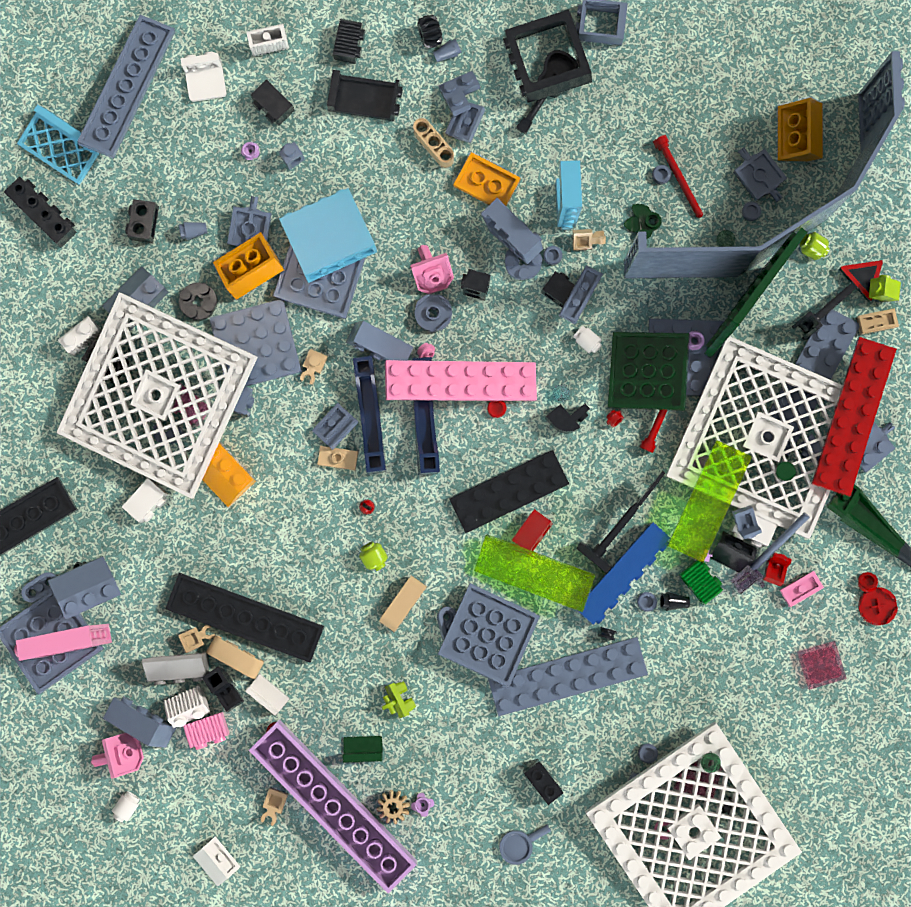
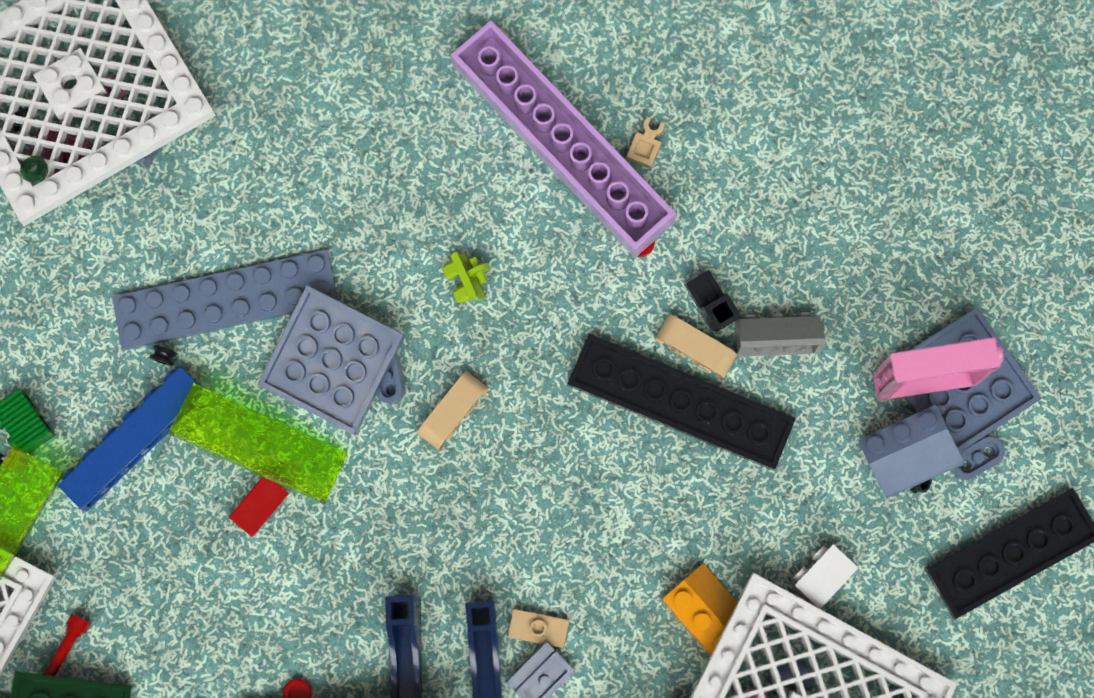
camera: 175 degrees left, 5 degrees down
(121, 754) = (857, 220): bright pink piece -> none
(125, 806) = (852, 151): white brick -> none
(139, 723) = (832, 261): sand blue wedge -> none
(186, 707) = (765, 279): white brick -> none
(193, 639) = (755, 374): tan plate -> none
(206, 730) = (738, 247): bright pink brick -> none
(216, 861) = (726, 75): white panel -> none
(267, 694) = (651, 292): white panel -> none
(362, 749) = (519, 212): dark green panel -> none
(369, 503) = (495, 559): red hinge -> none
(373, 556) = (491, 480): lime head -> none
(400, 805) = (479, 124): tan gear -> none
(417, 804) = (440, 129): lavender plate -> none
(509, 491) = (288, 567): black plate -> none
(517, 845) = (313, 77): sand blue piece -> none
(543, 782) = (271, 158): black brick -> none
(564, 422) = (195, 664): black brick -> none
(599, 550) = (92, 542): black piece -> none
(614, 418) = (123, 669): red plate -> none
(647, 601) = (103, 398): sand blue tile -> none
(647, 753) = (123, 191): sand blue tile -> none
(672, 601) = (64, 396): black cone -> none

